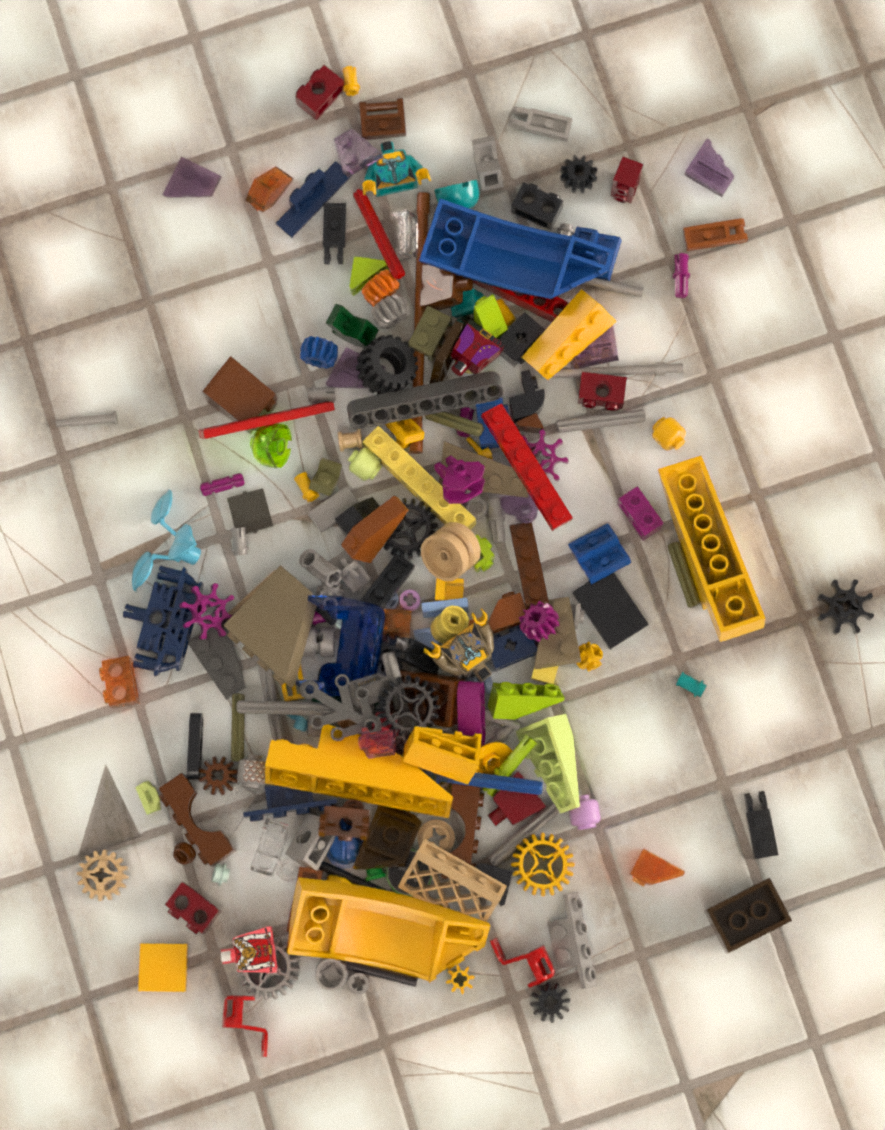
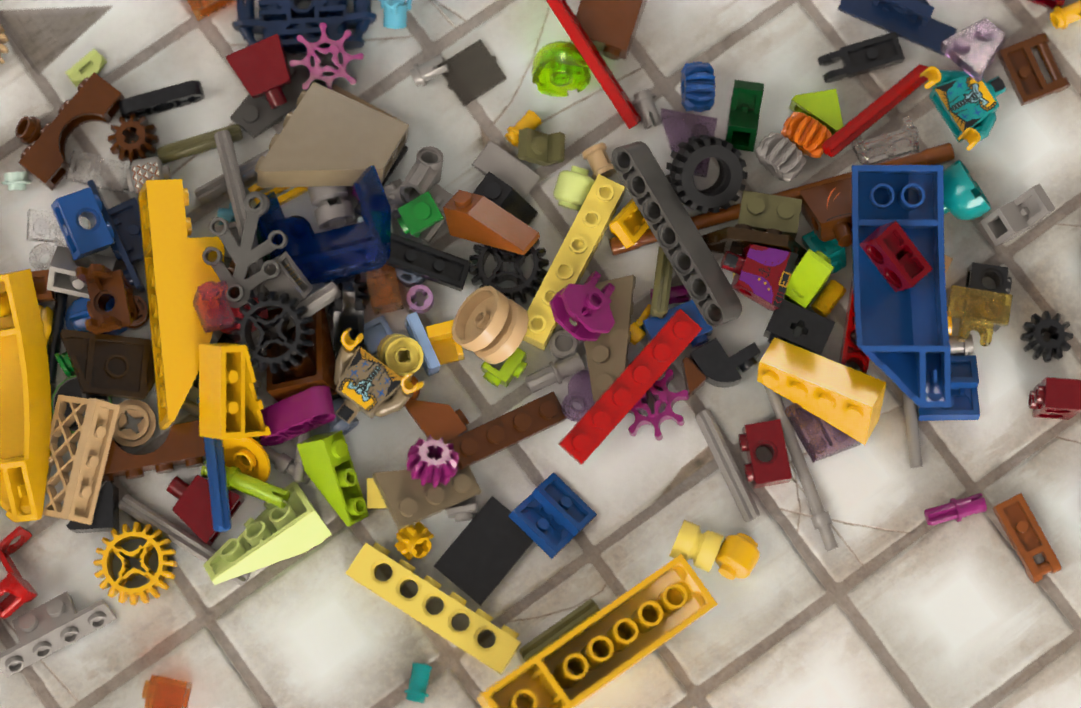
camera: 70 degrees right, 0 degrees up
(201, 659) = (263, 69): none -> dark red torso
(222, 484) = (495, 27): magenta axle -> none
(267, 834) = (83, 241): none -> blue brick
(352, 576) = (419, 214): none -> green bracket
(495, 251) = (895, 256): none -> dark red brick
(523, 650) = (380, 433): dark blue brick -> none
(550, 211) = (978, 311): none -> clear yellow plate
(587, 814) = (212, 598): lavender head -> none
(640, 513) = (619, 550): magenta brick -> none
(654, 457) = (696, 545): none -> light yellow wheel
(689, 622) = (364, 572): none -> light yellow brick

